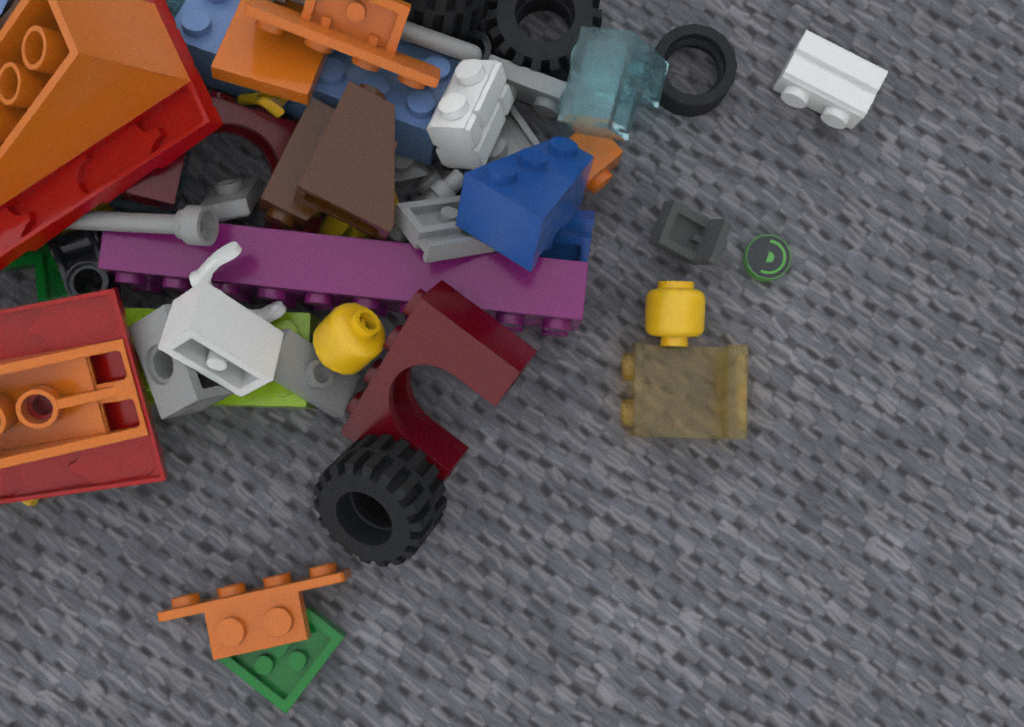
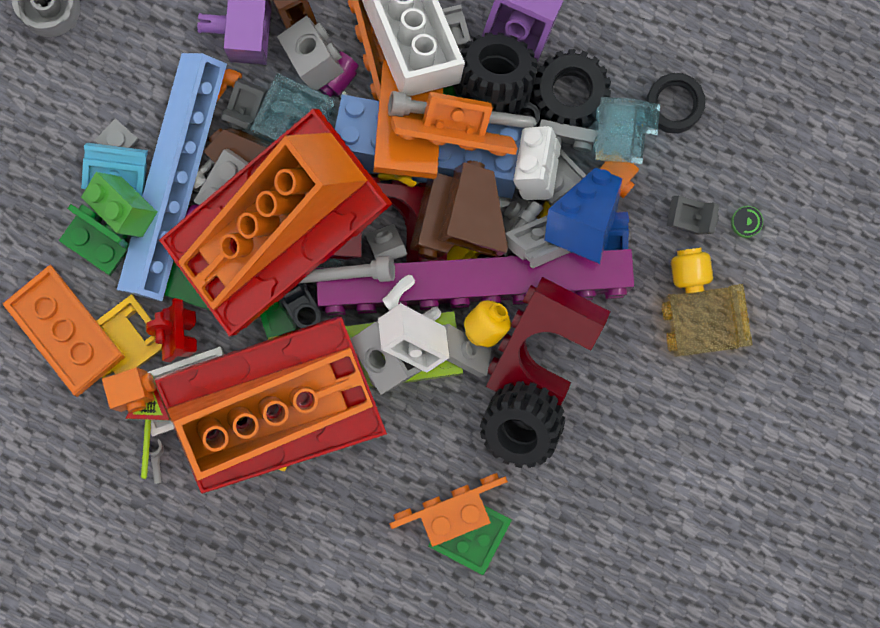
camera: 15 degrees left, 0 degrees up
(829, 81) = (768, 96): white brick -> none

